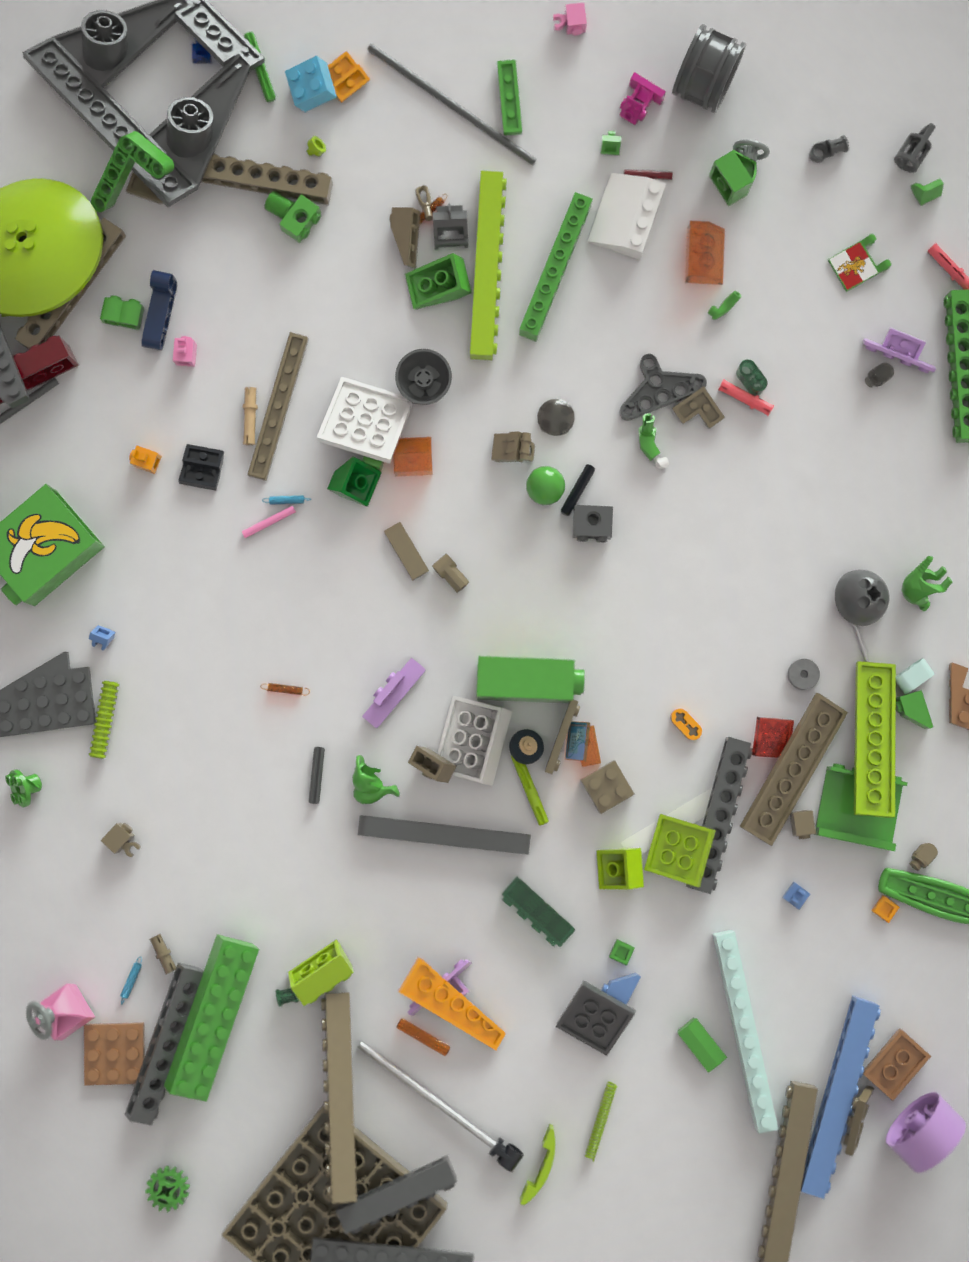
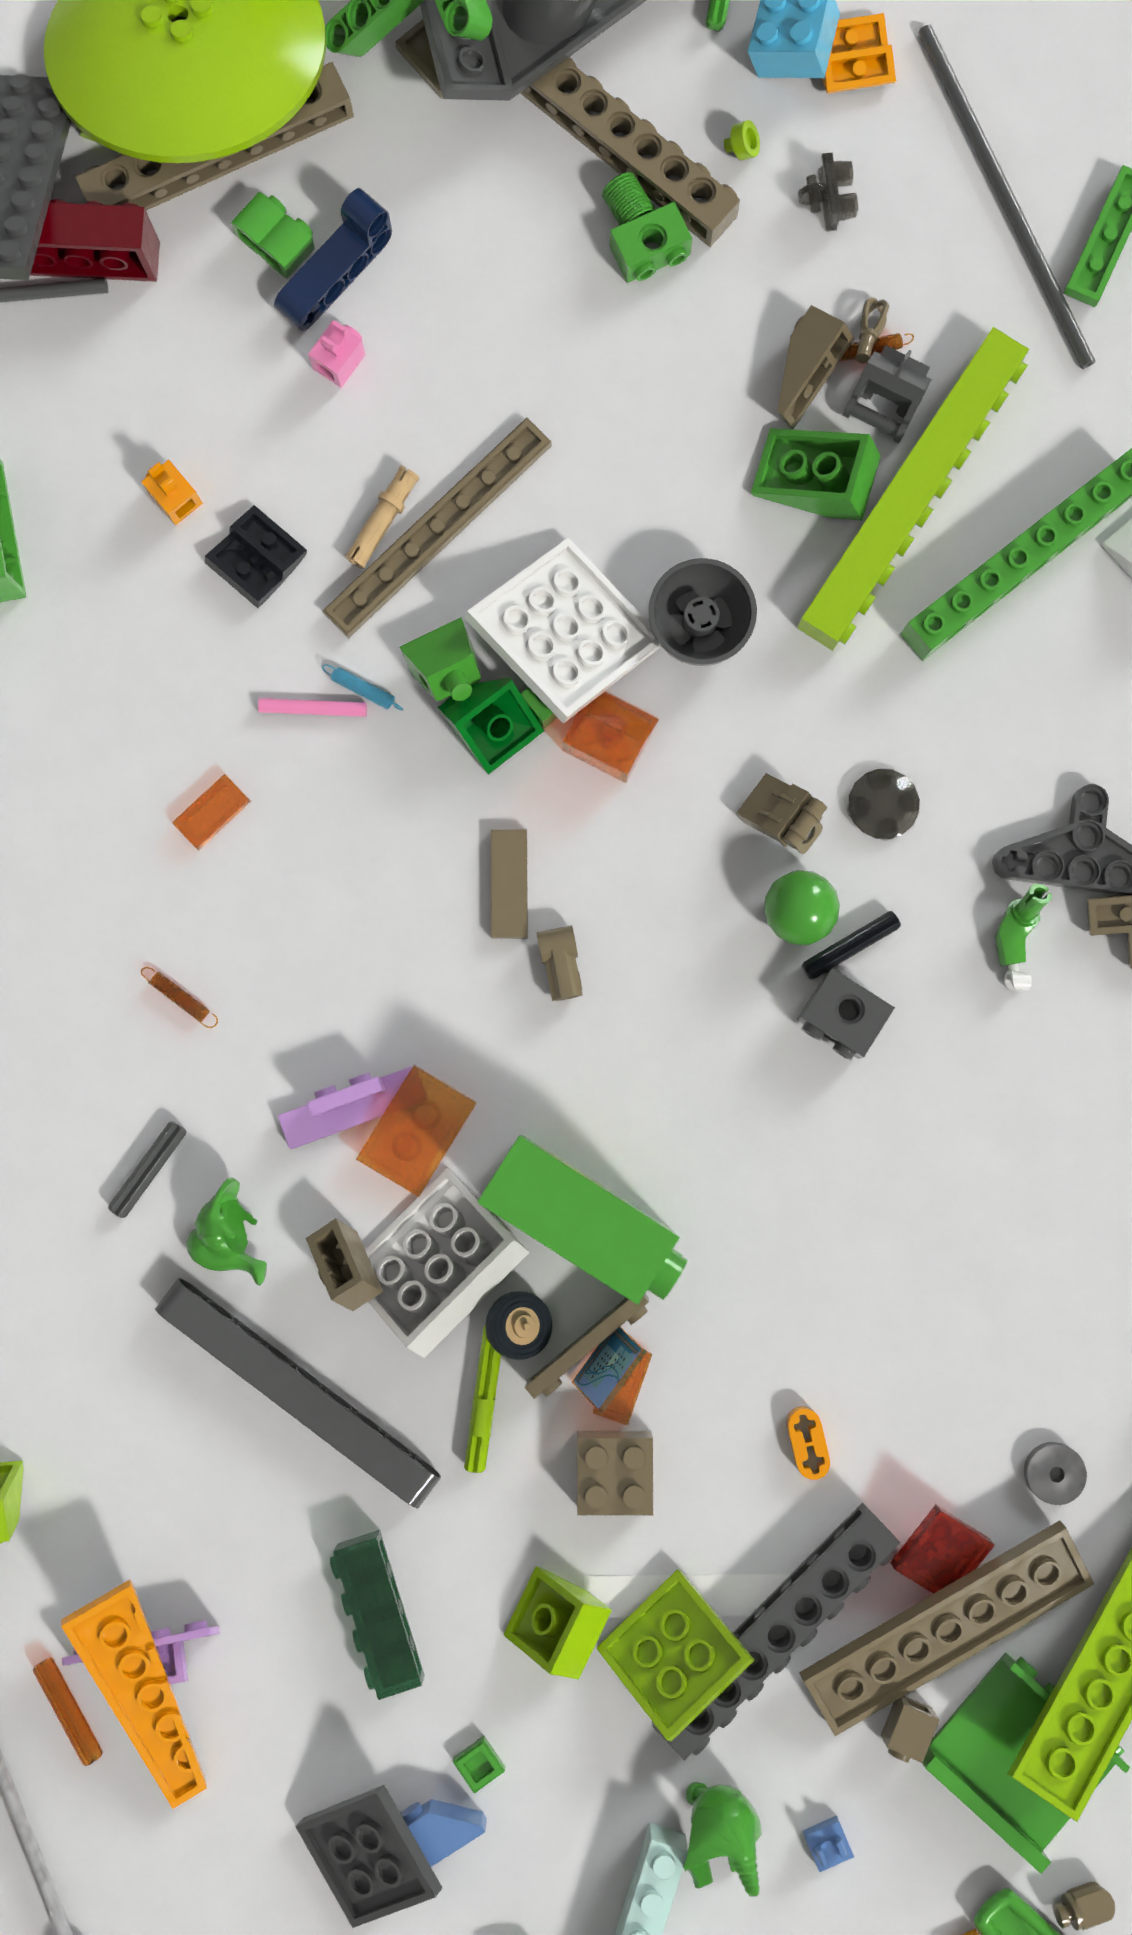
camera: 30 degrees right, 0 degrees up
(250, 596) = (211, 812): none -> clear orange tile
(318, 466) = (444, 661): none -> bright green torso
(366, 141) = (830, 177): none -> clear smoke hips
(429, 686) = (416, 1130): none -> clear orange tile
(742, 911) = (722, 1826): none -> bright green piece

